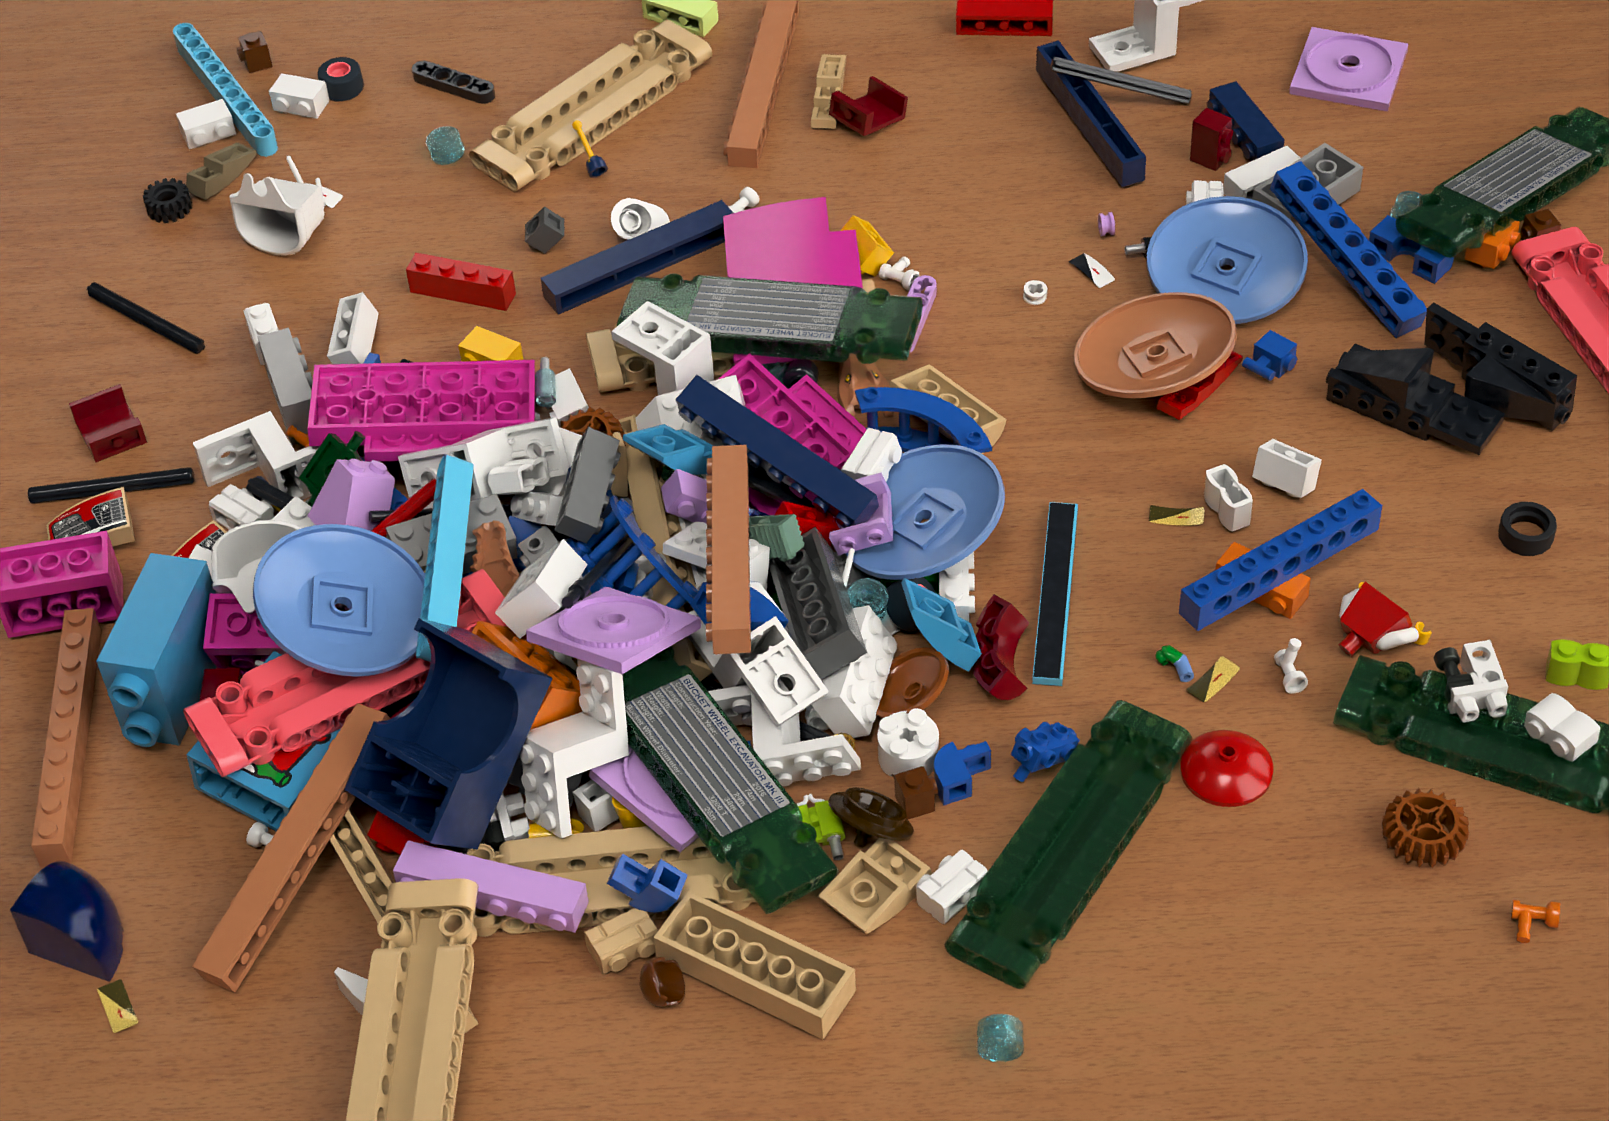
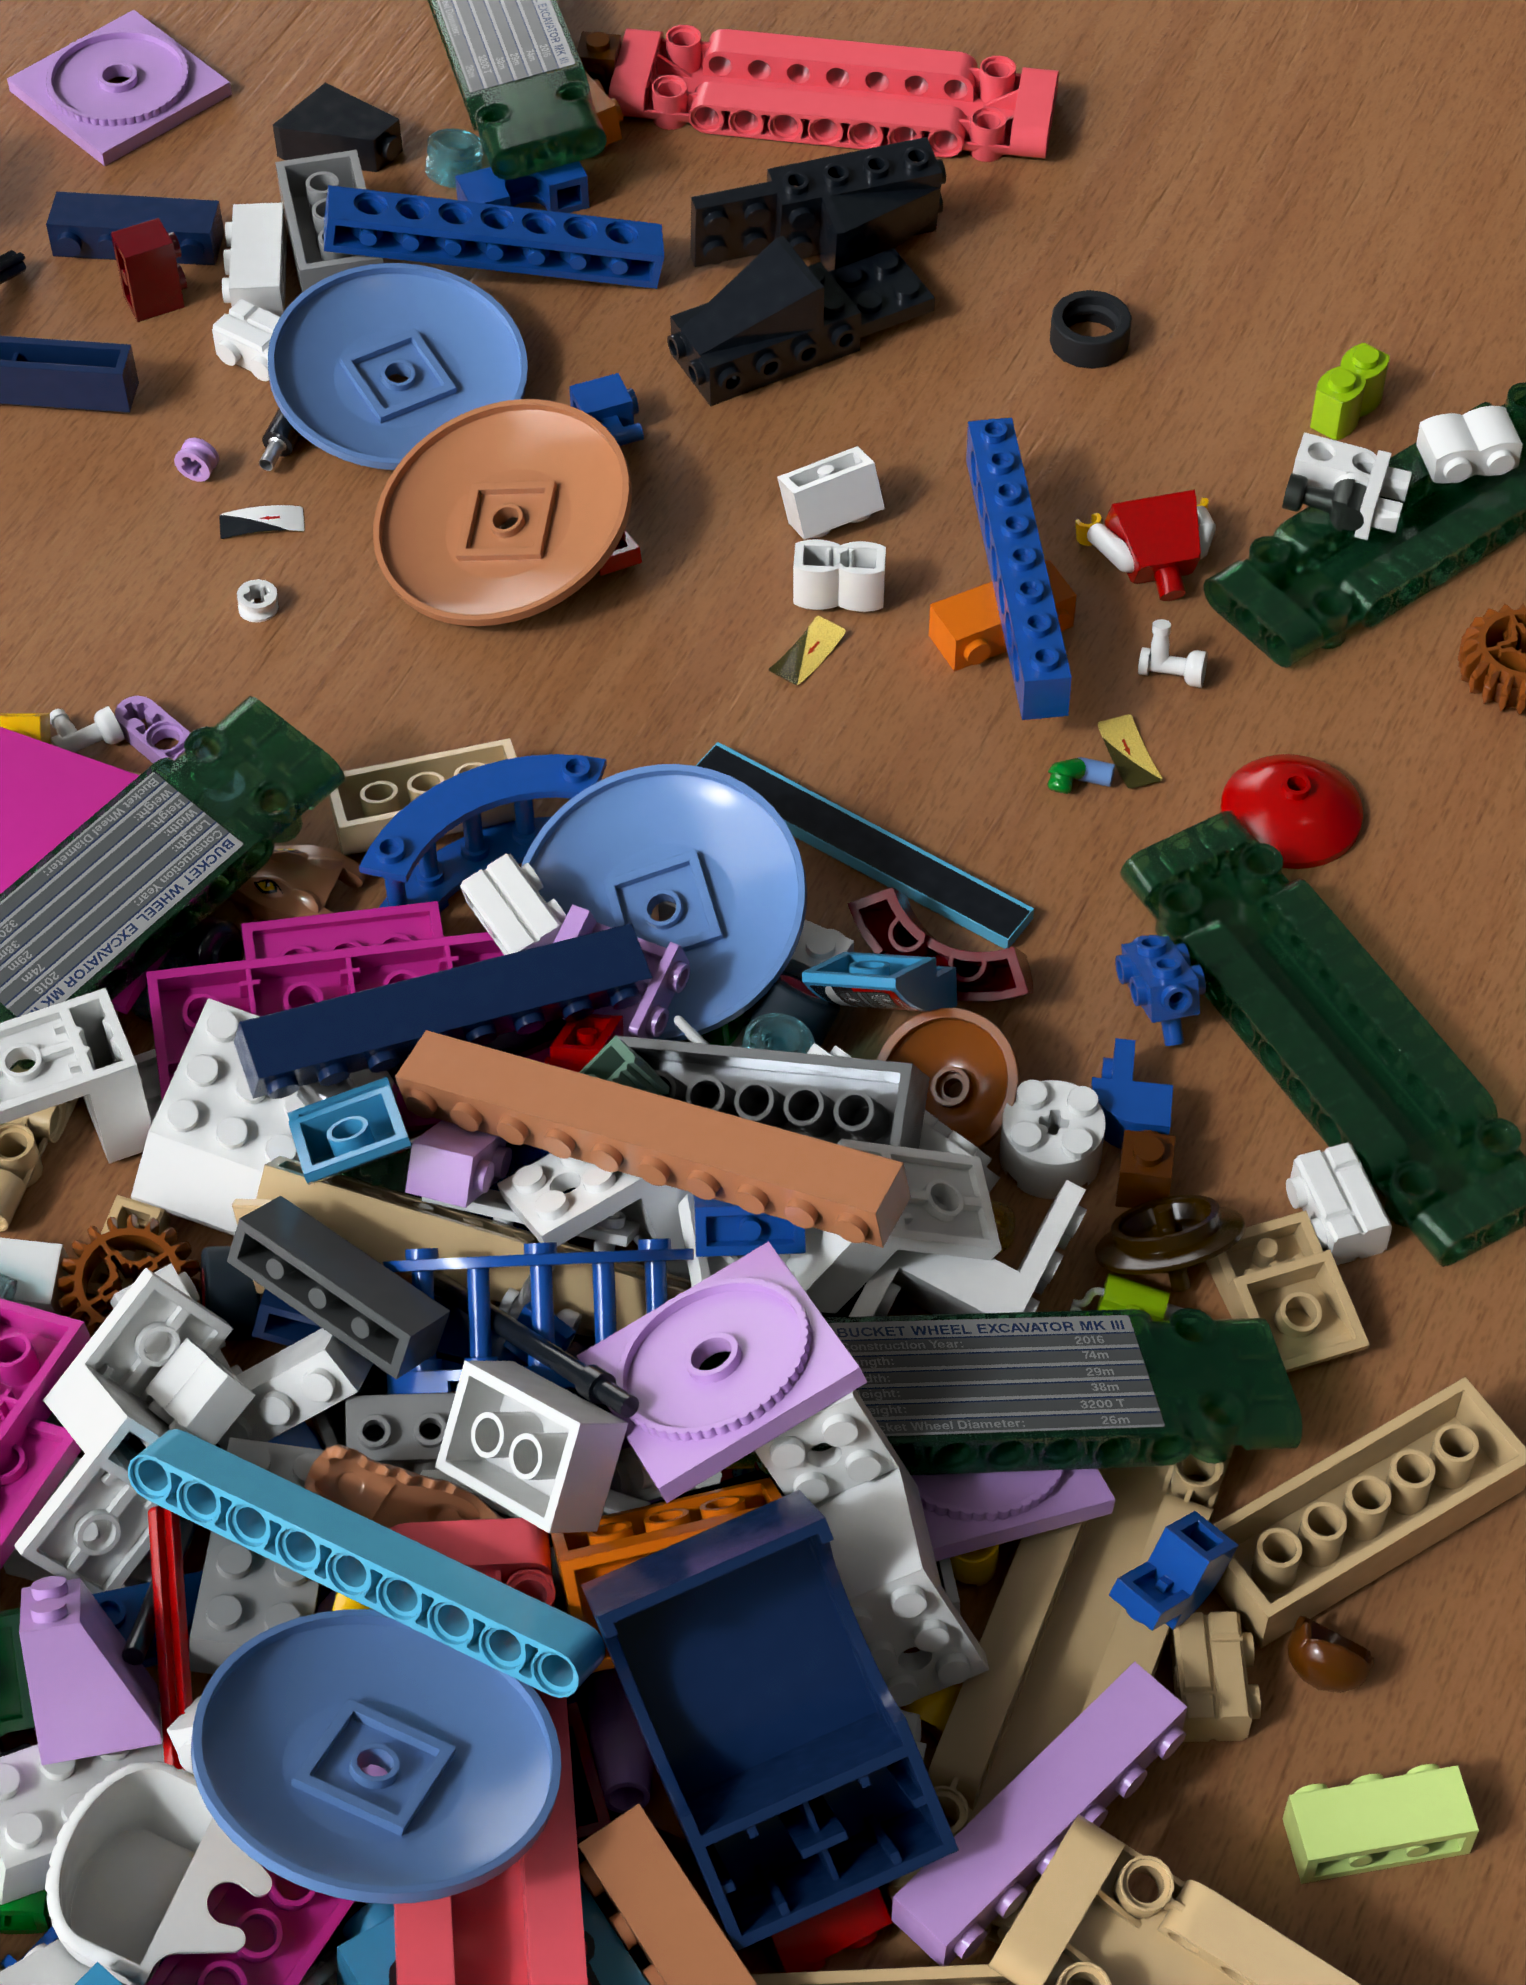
camera: 65 degrees left, 5 degrees up
(579, 1041) = (1379, 1822): none -> yellowish green brick
(1387, 159) = (336, 123): none -> black slope

